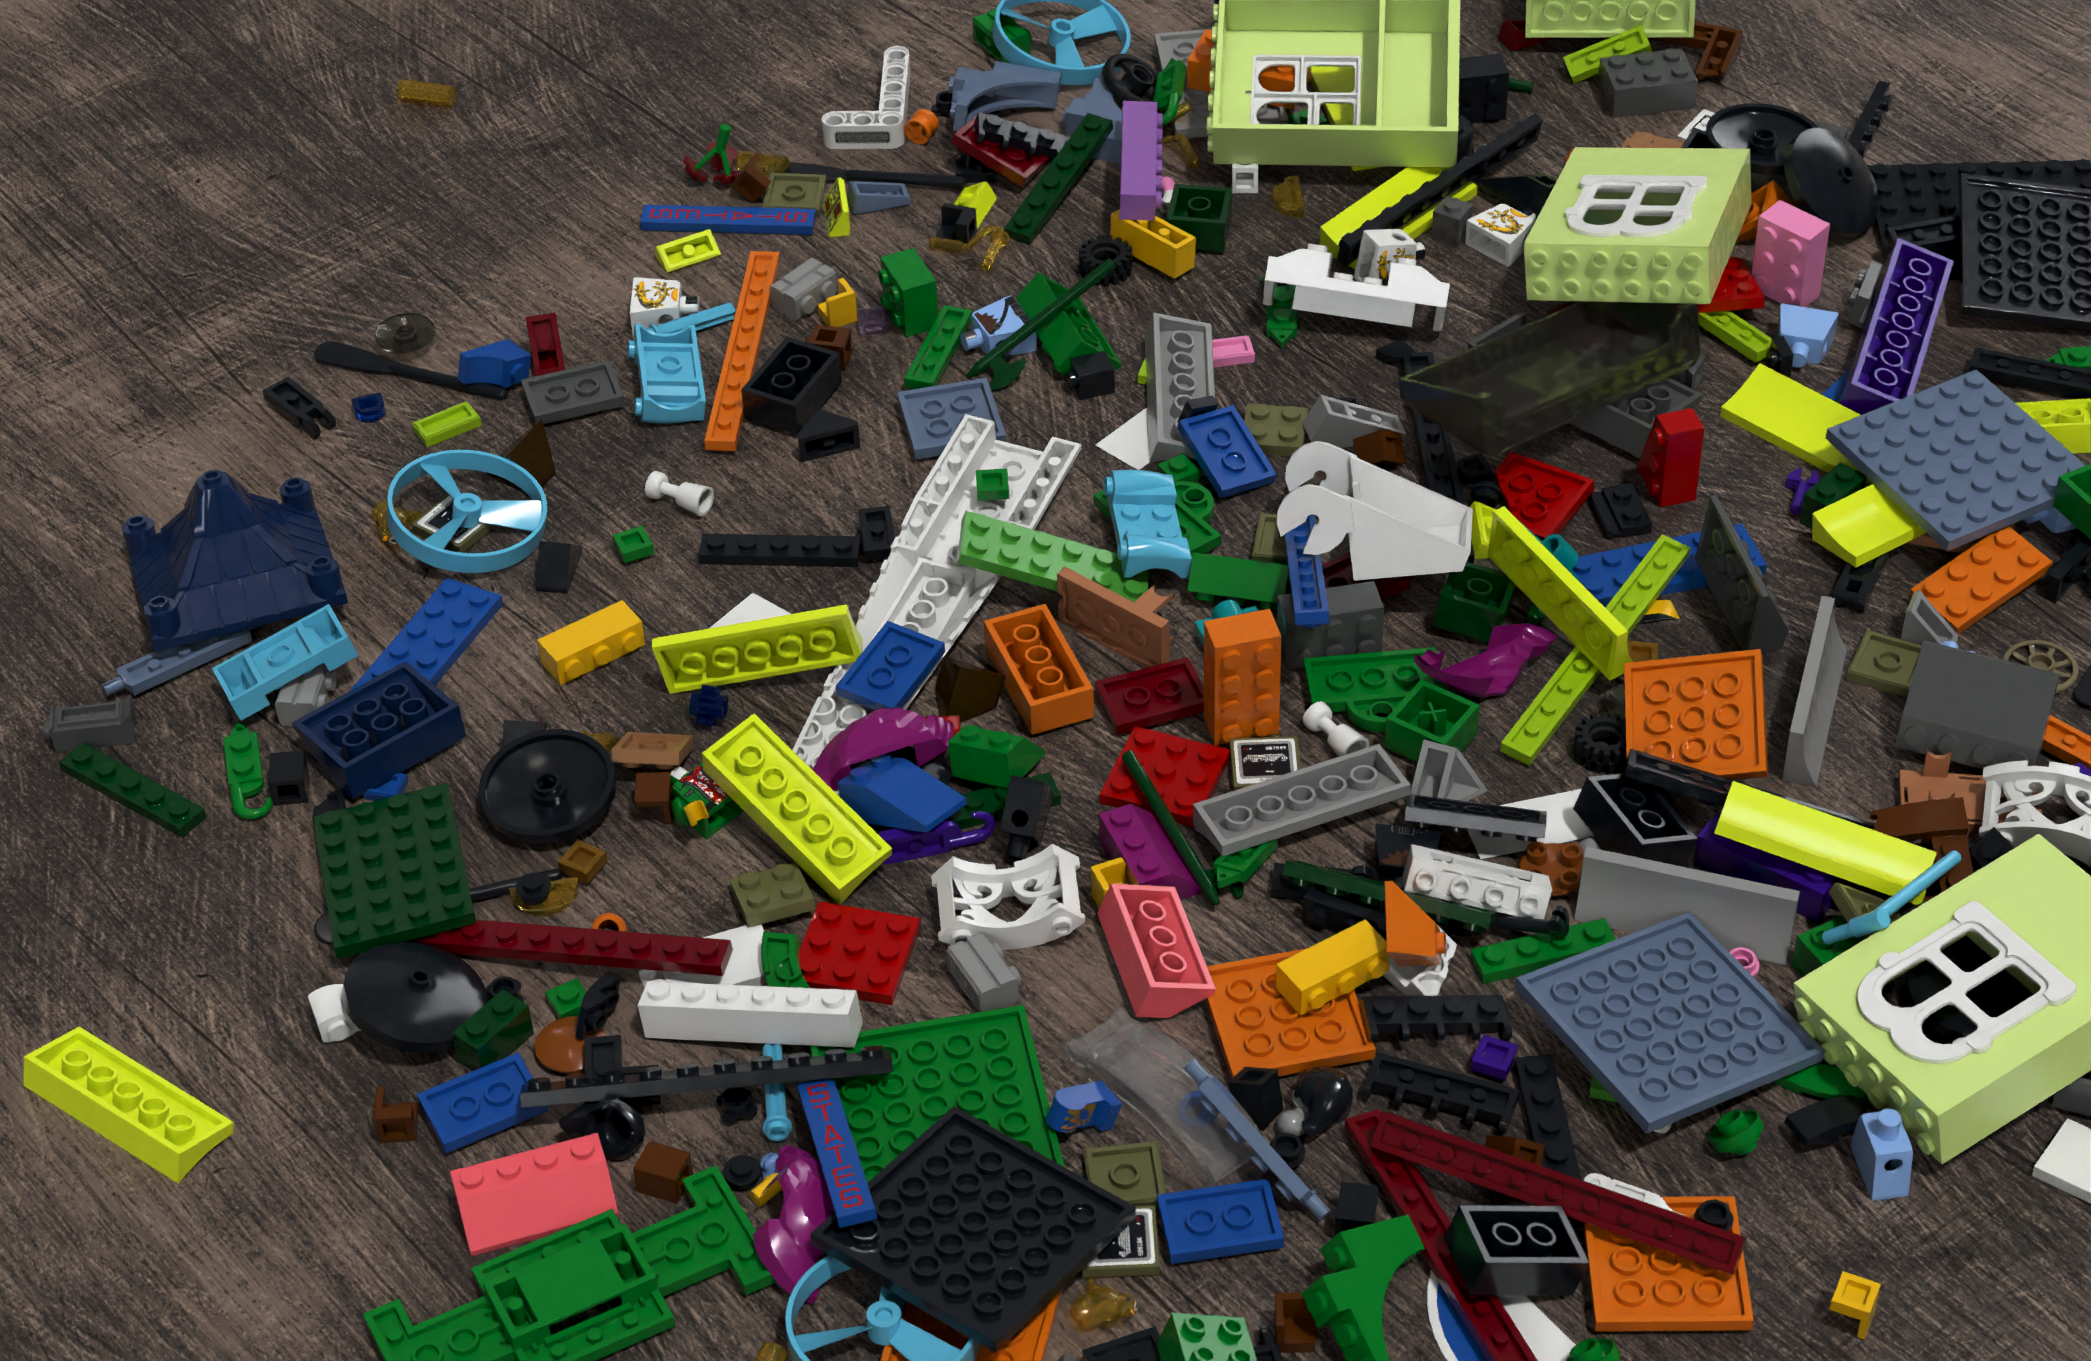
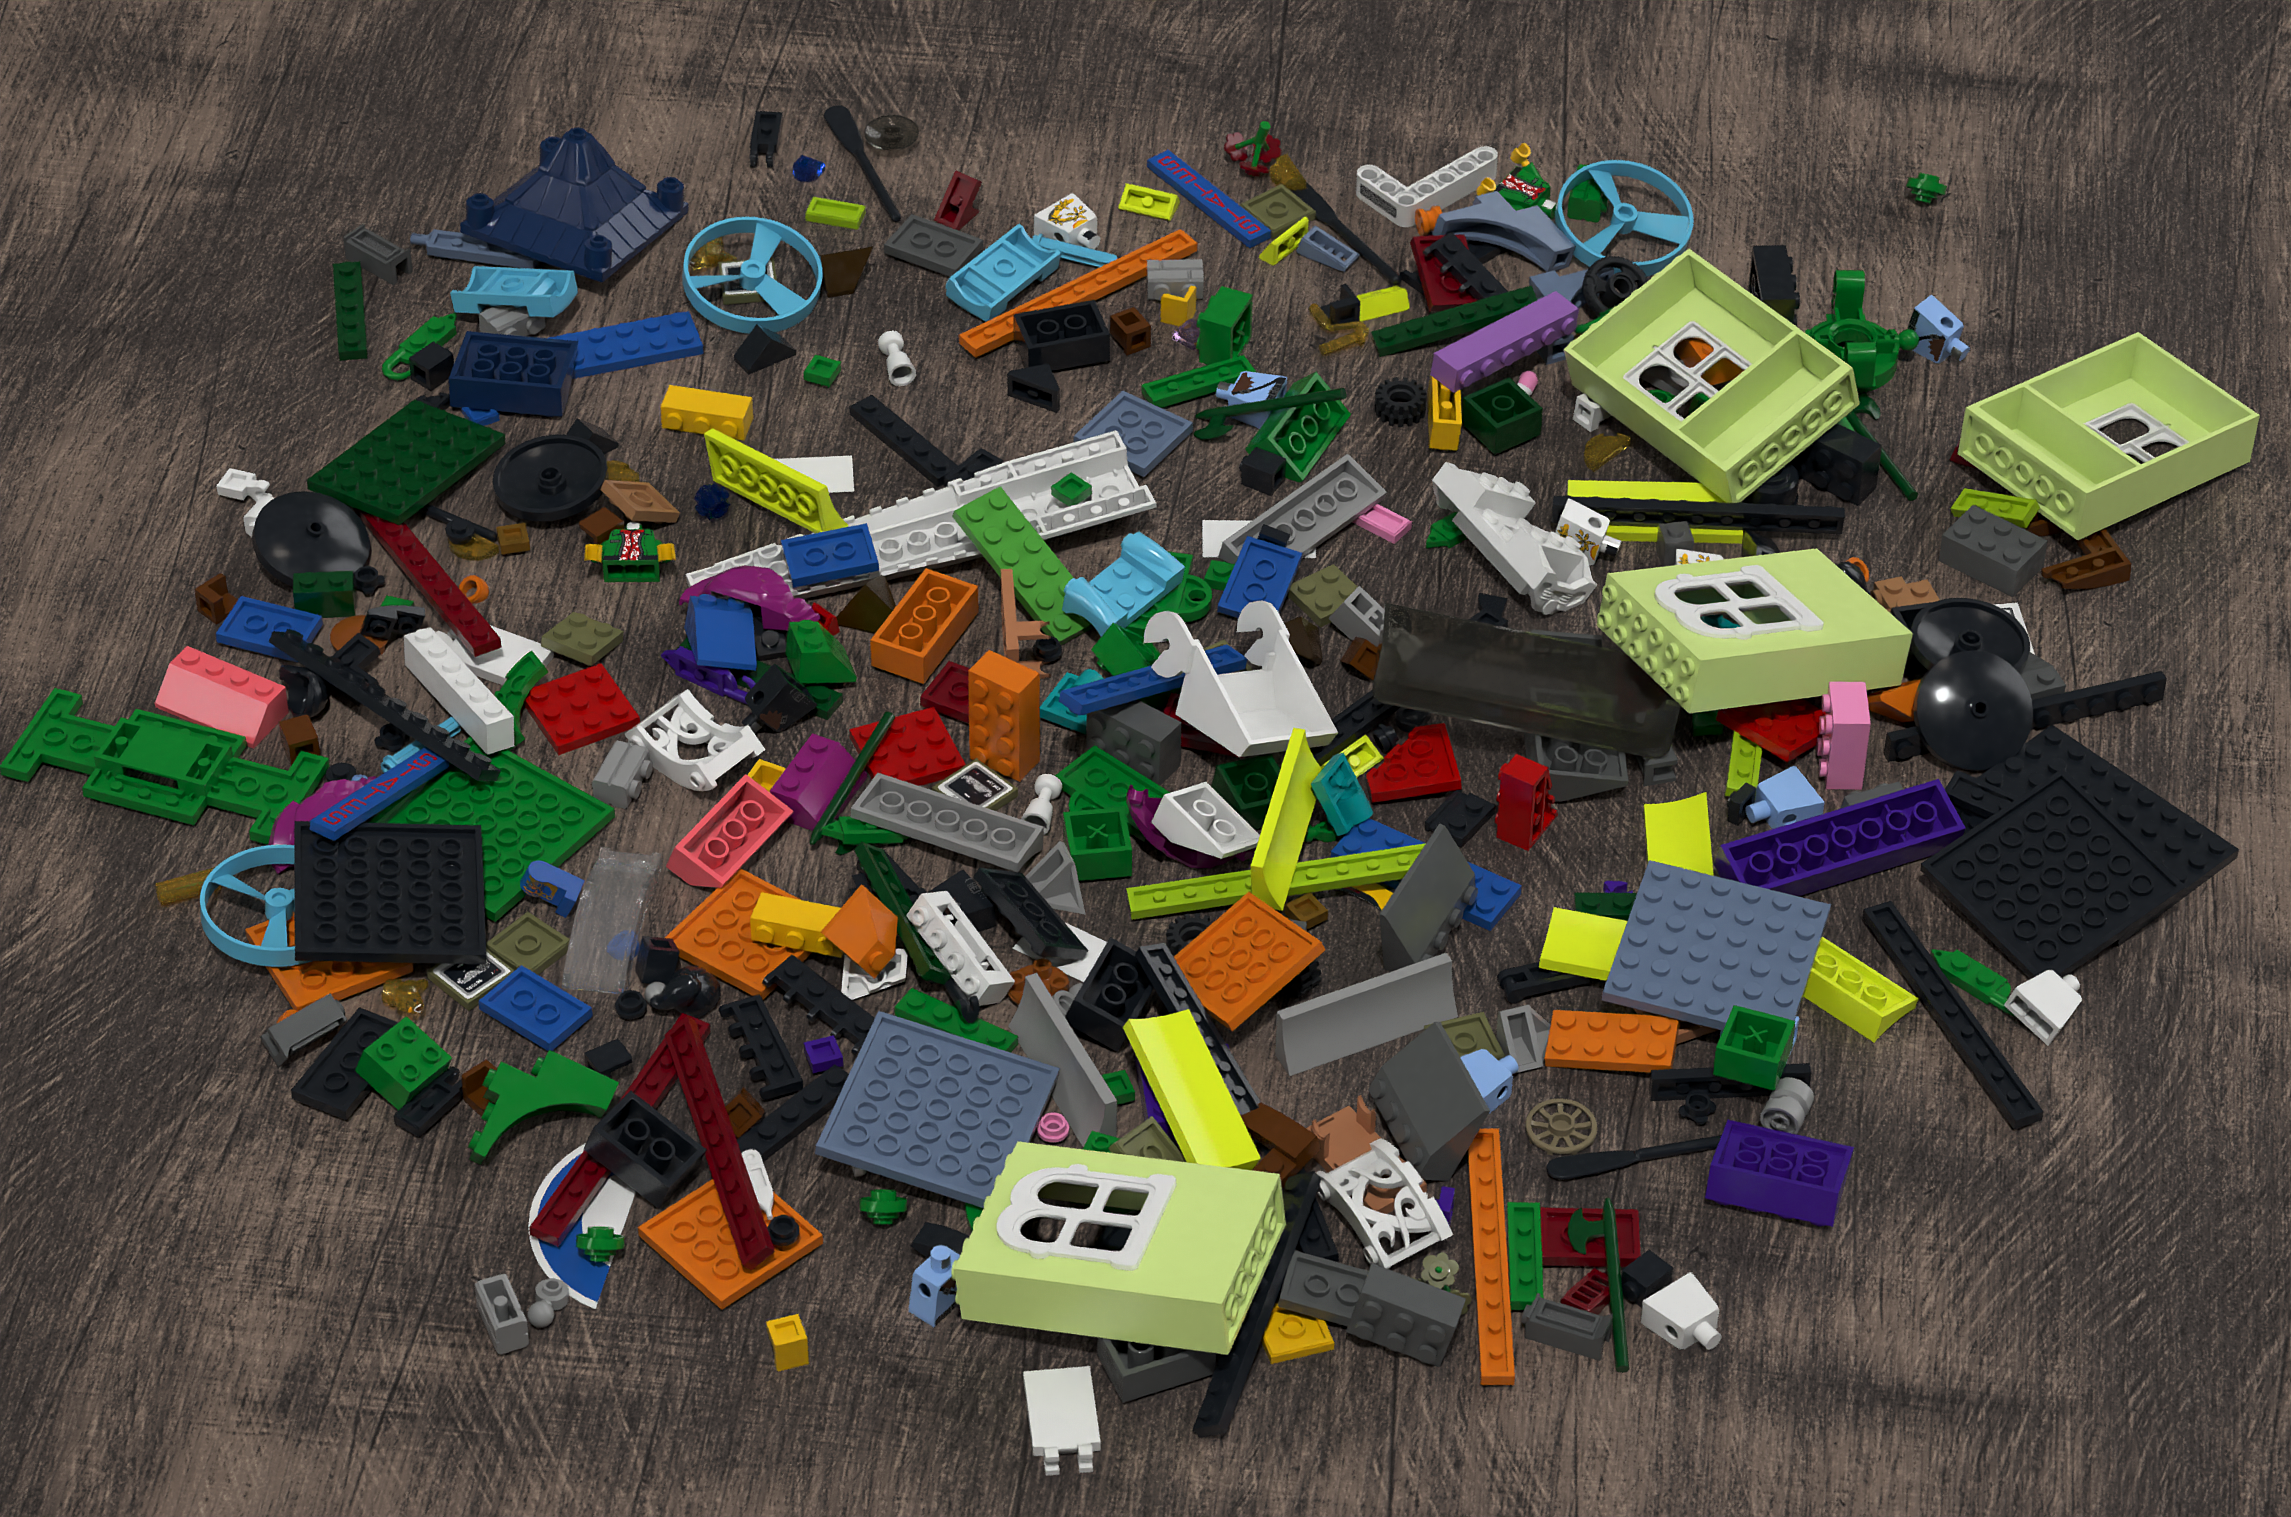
camera: 45 degrees right, 0 degrees up
(125, 1102) = (107, 483): neon yellow arch -> none
(263, 1004) = (239, 484): none -> white plate
(494, 363) = (908, 190): blue arch -> none
(750, 181) = (1258, 178): reddish brown panel -> none
(795, 807) = (648, 592): neon yellow arch -> none
(950, 57) = (1523, 185): none -> torso
(1263, 1155) = (604, 973): sand blue plate -> none
(1500, 645) = (1203, 822): none -> white slope
(1880, 917) = (1112, 1144): medium azure bar -> none

